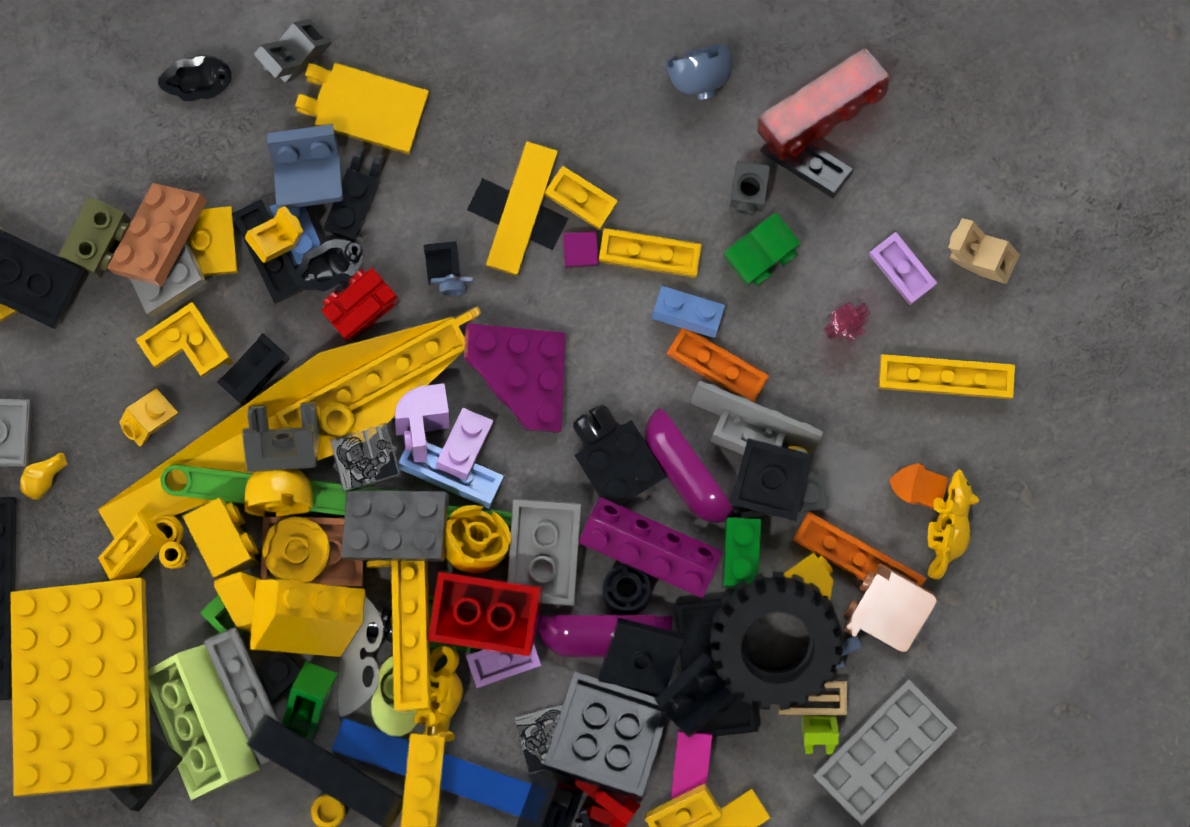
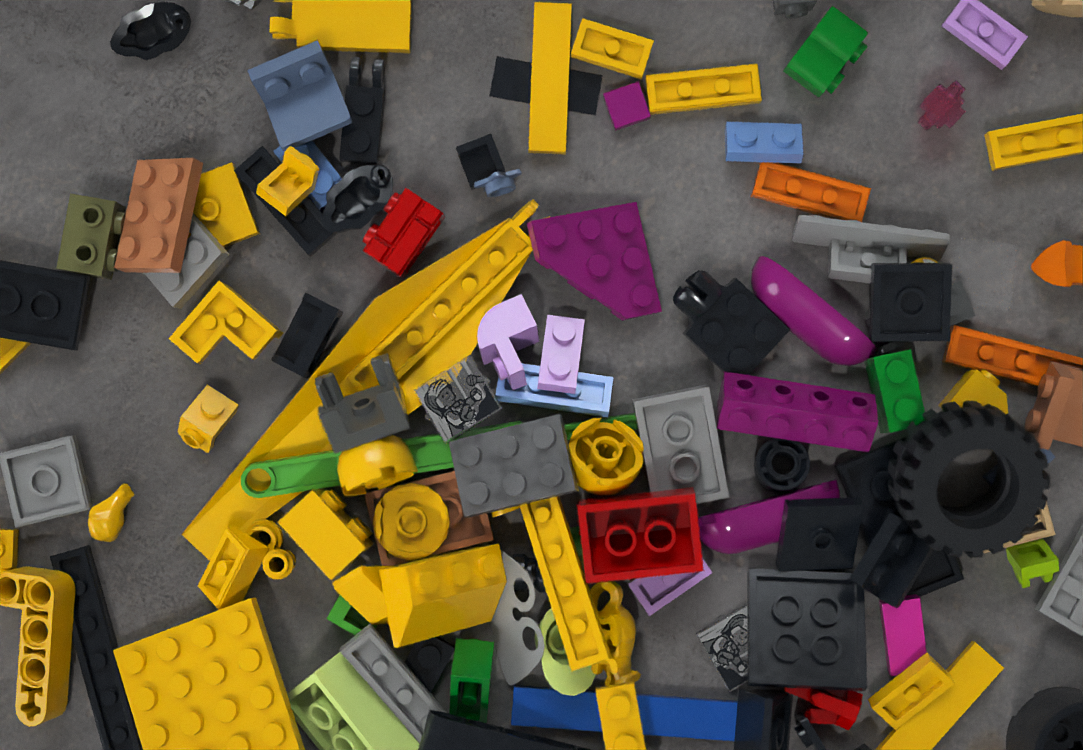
camera: 10 degrees left, 5 degrees up
(336, 420) = (414, 366): yellow tile -> none

